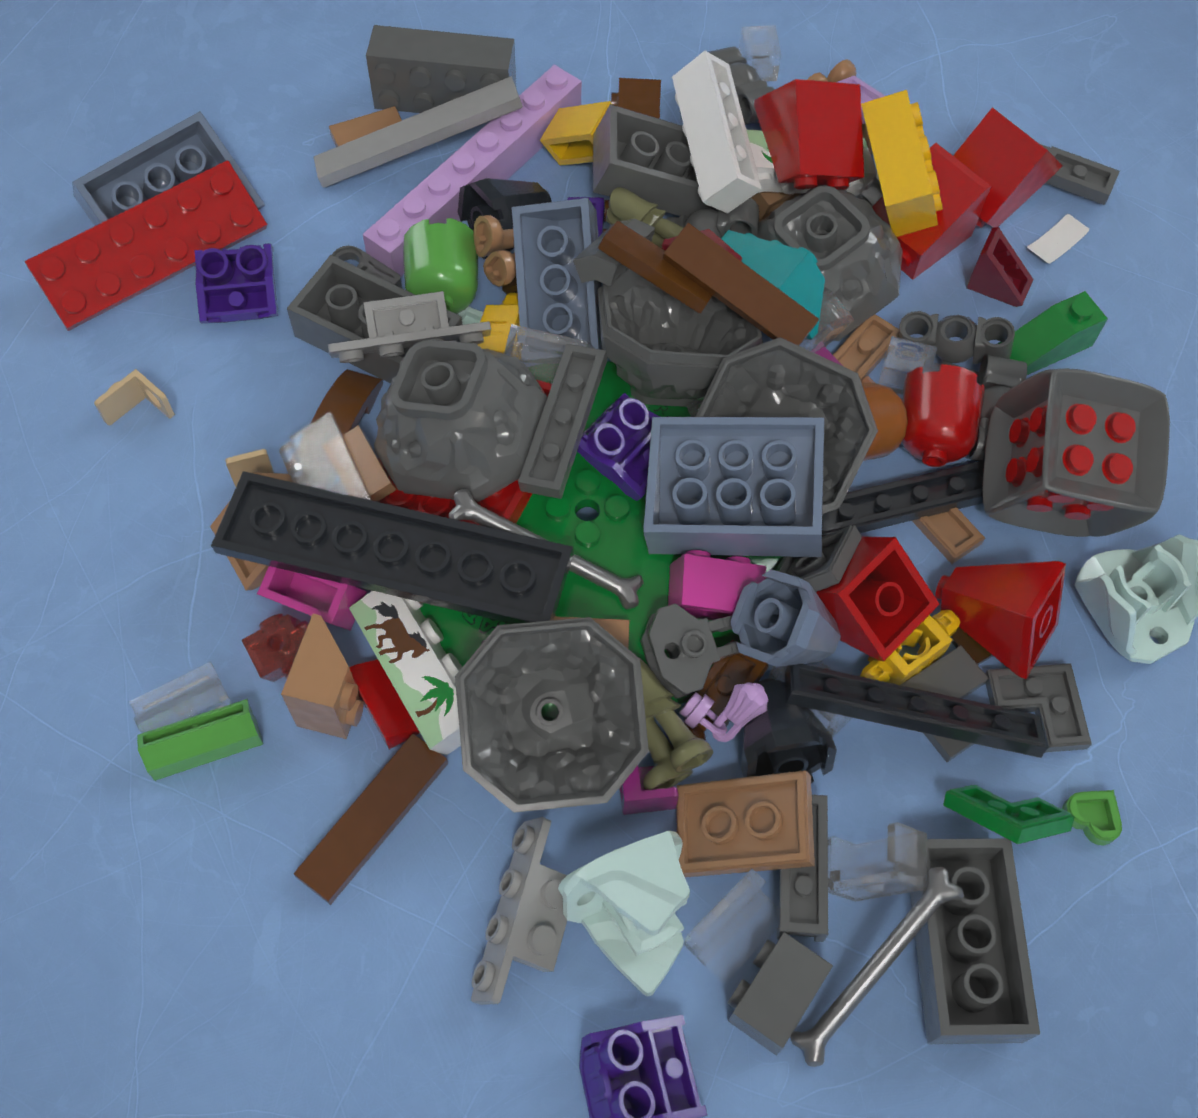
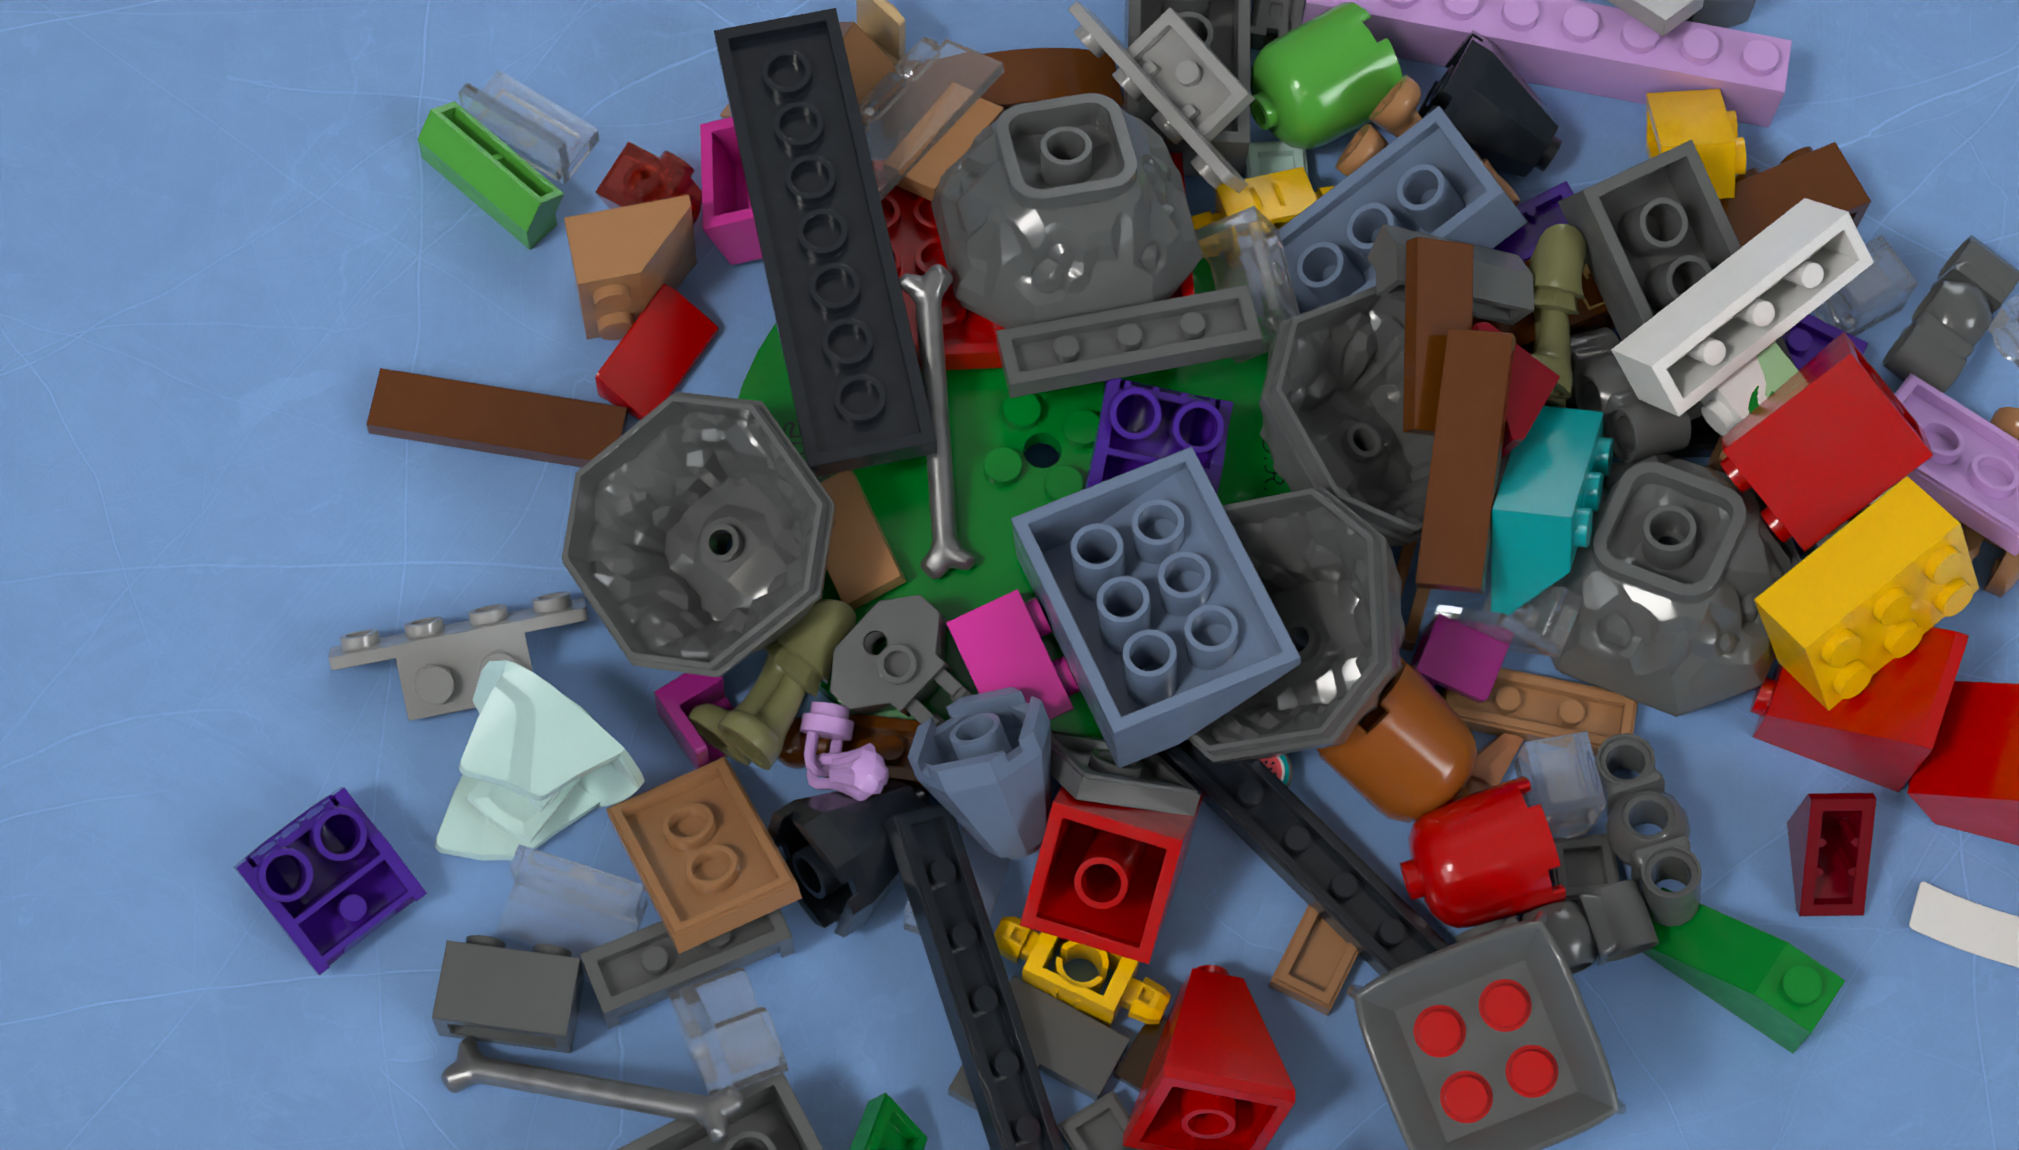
camera: 60 degrees right, 5 degrees up
(415, 664) = (721, 346): brick -> none

